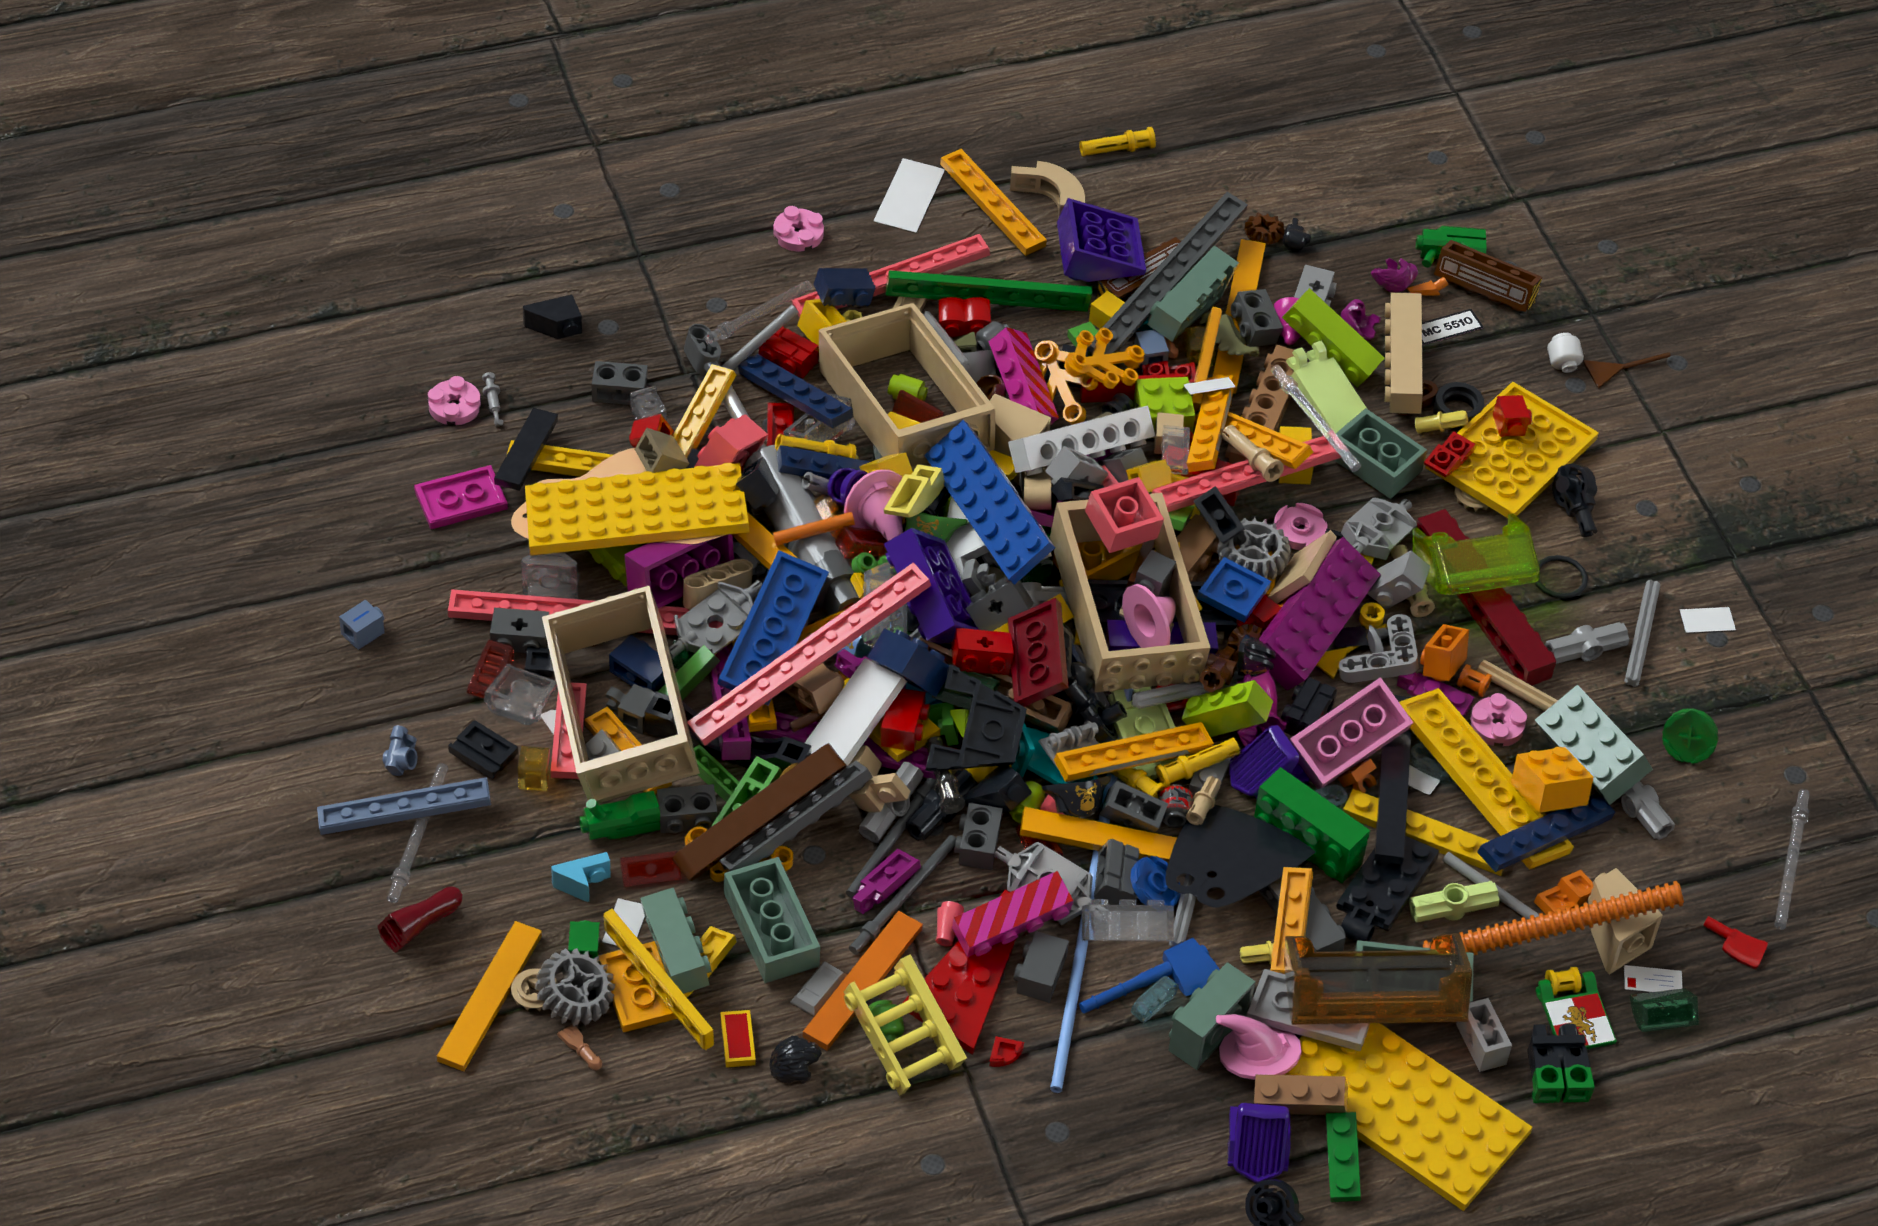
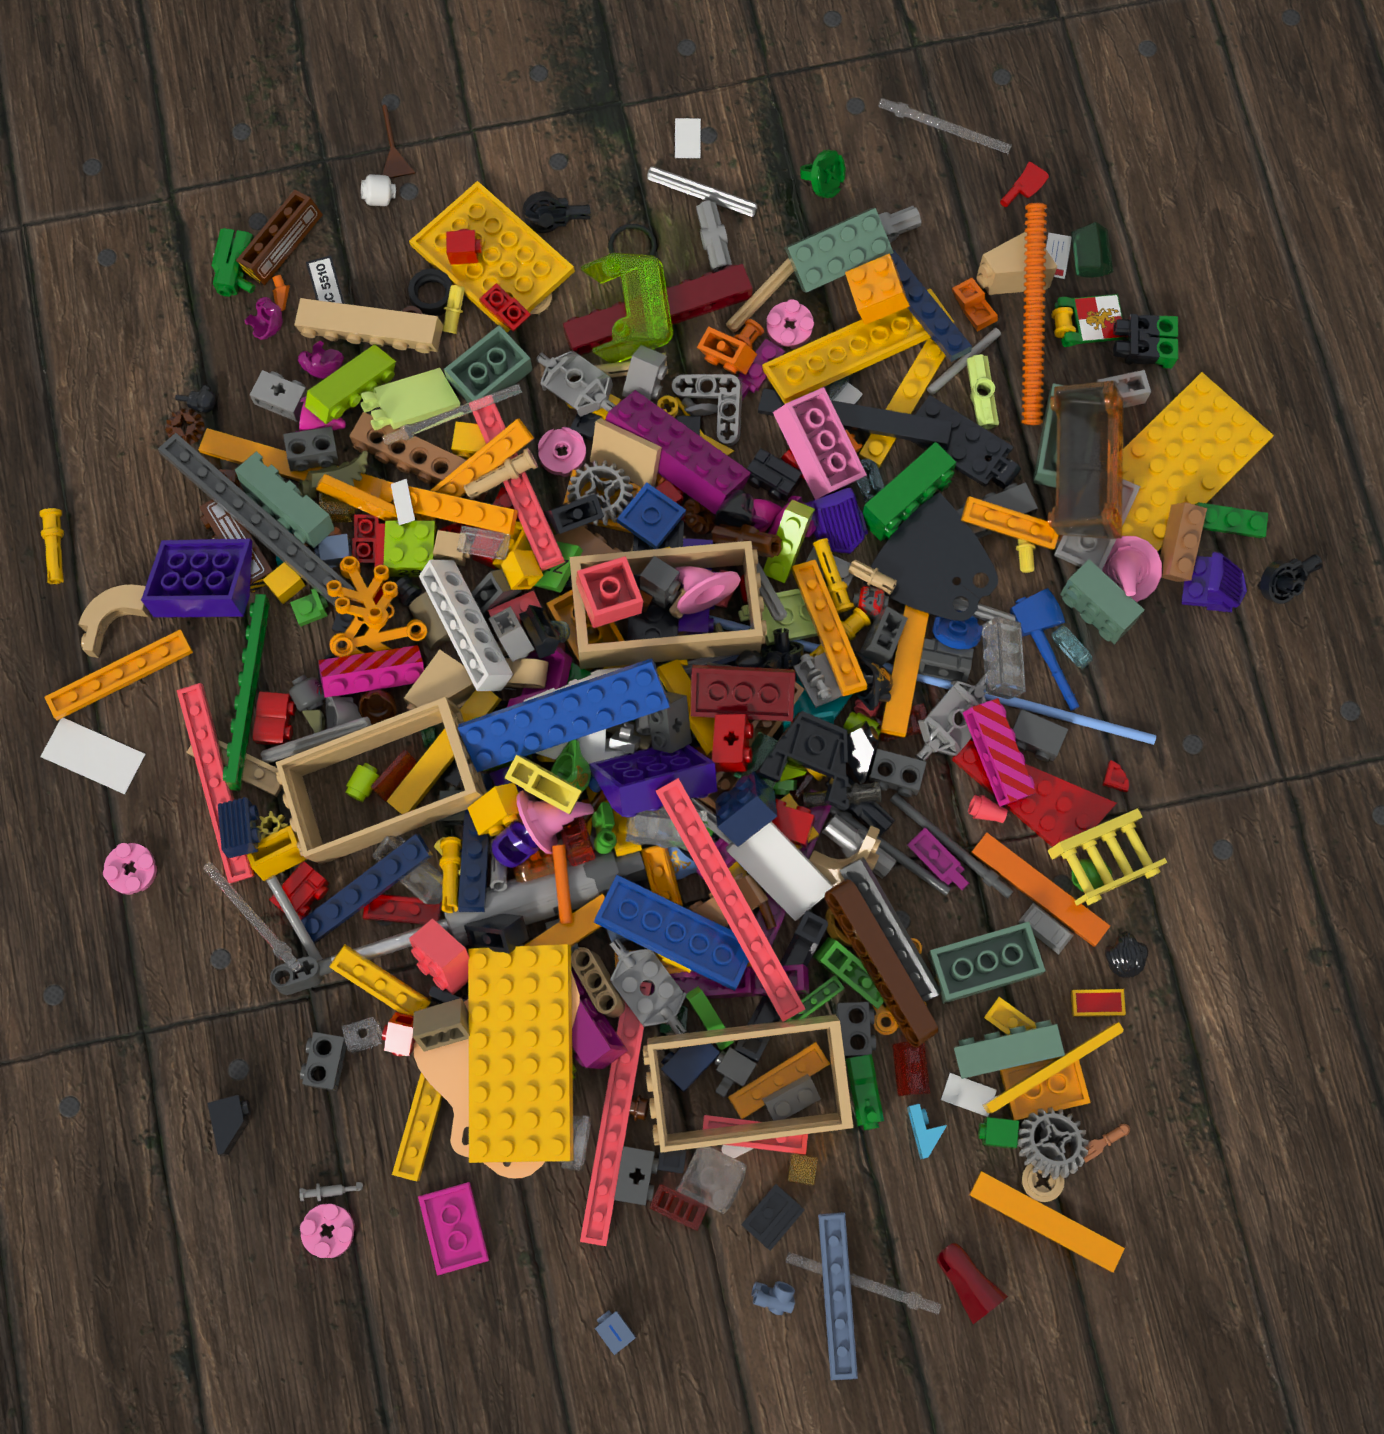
camera: 80 degrees left, 25 degrees up
(526, 449) = (410, 1159): black tile -> none

